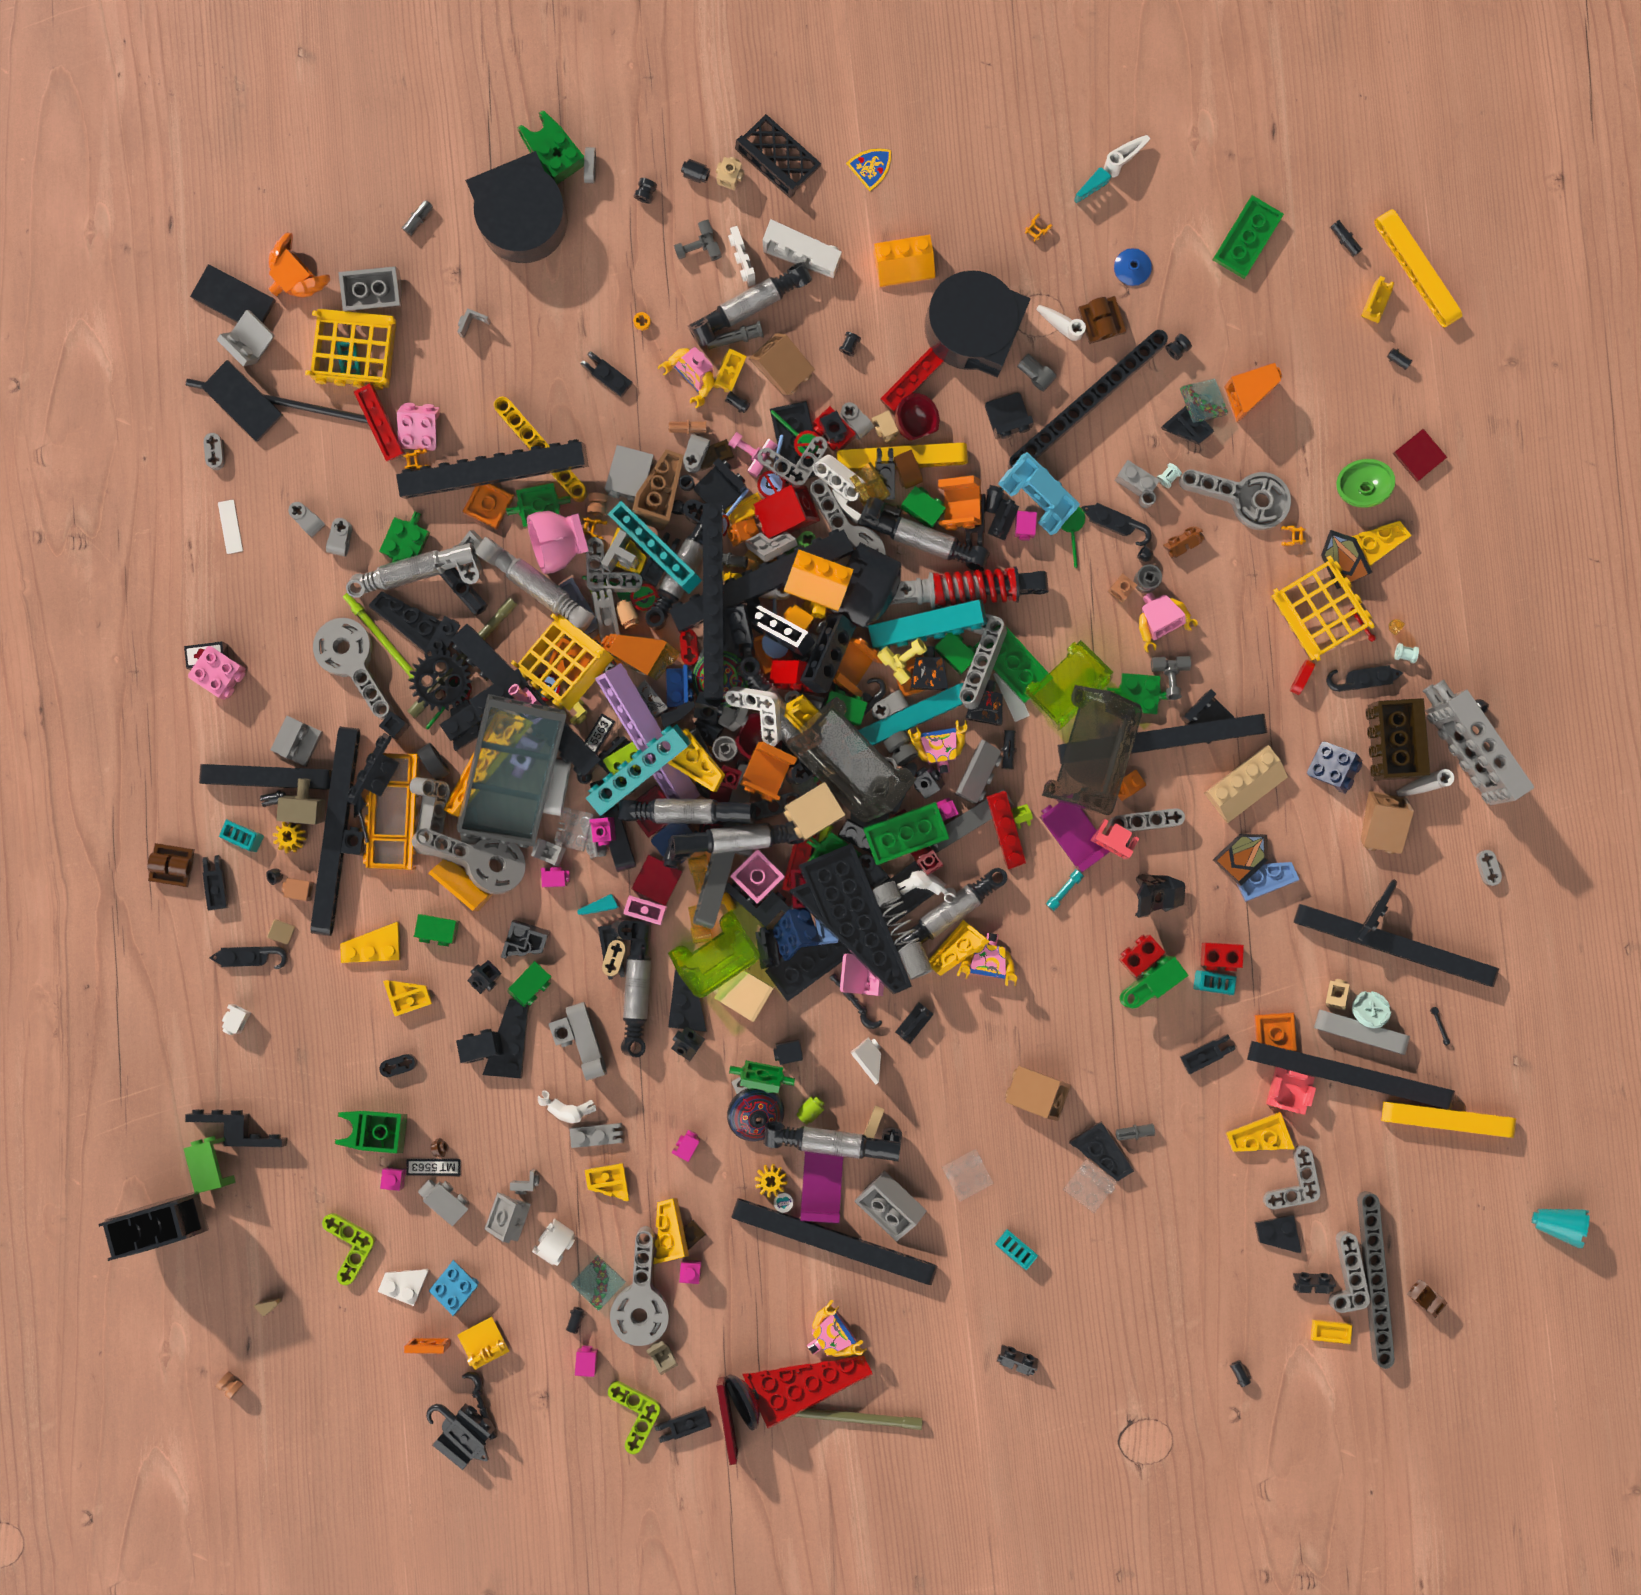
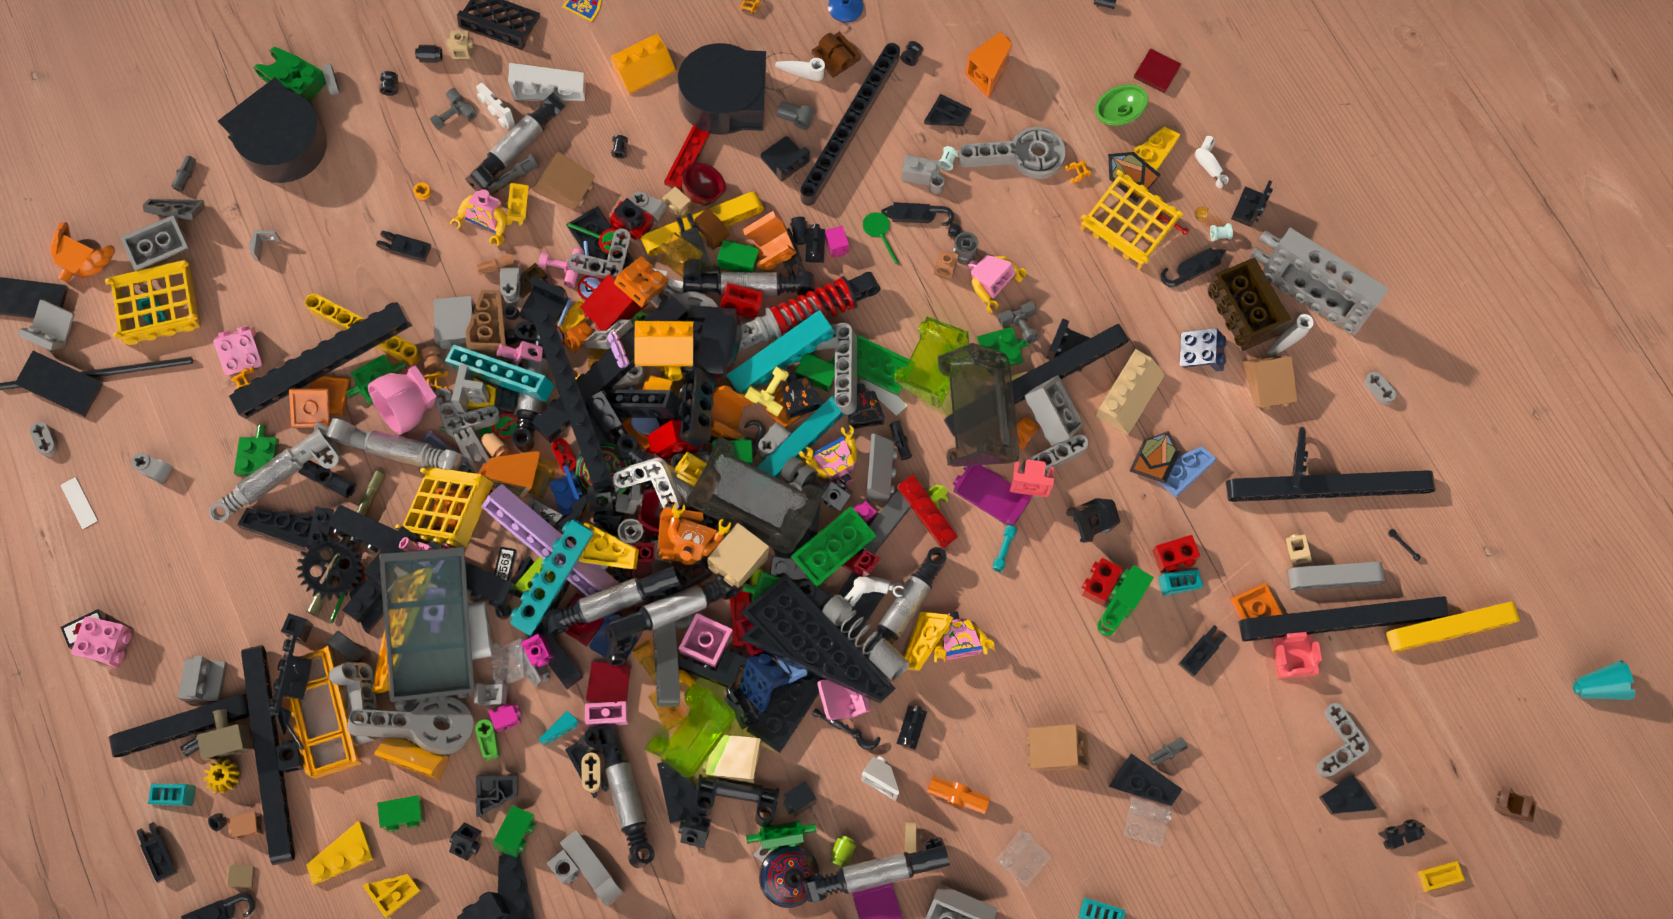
camera: 20 degrees left, 15 degrees down
(170, 865) = (104, 850): reddish brown plate -> none
(339, 540) = (190, 476): light grey piece -> none
(353, 662) = (237, 585): light grey beam -> none
(359, 611) = (229, 534): lime bar -> none
(379, 422) = (199, 357): red plate -> none
(398, 254) = (179, 208): none -> dark grey wing
(467, 512) = (309, 407): none -> orange tile
(532, 895) = (488, 742): none -> bright green piece
(581, 712) = (478, 550): light yellow bracket -> none
(681, 533) = (520, 352): none -> bright pink bracket
(735, 561) = (581, 363): dark grey axle -> none
(739, 403) = (533, 228): black pin -> none
(759, 1037) = (764, 797): none -> black piece
(773, 568) = (618, 349): none -> lavender axle
(778, 781) = (694, 539): none -> orange torso
(820, 504) = (641, 281): none -> orange piece
(836, 476) = (642, 249): white beam -> none
(910, 554) = (744, 300): none -> red brick
(931, 1099) = (958, 795): none -> orange piece
(1042, 489) = (840, 205): medium azure bracket -> none
(1165, 777) = (1054, 410): none -> light grey slope
(1177, 543) = (979, 212): dark orange hinge -> none
(1204, 400) = (952, 88): clear light blue tile -> none
(1263, 1134) = (1288, 708): yellow wing -> none
(1302, 677) = (1139, 284): red beam -> none
(1348, 1271) = (1429, 808): light grey beam -> none
(1371, 1009) = (1335, 551): light aqua tile -> none
(1381, 1286) = (1468, 811): dark grey beam -> none
(1426, 574) = (1209, 162): none -> white arm
(1449, 635) = (1251, 205): none -> black bracket

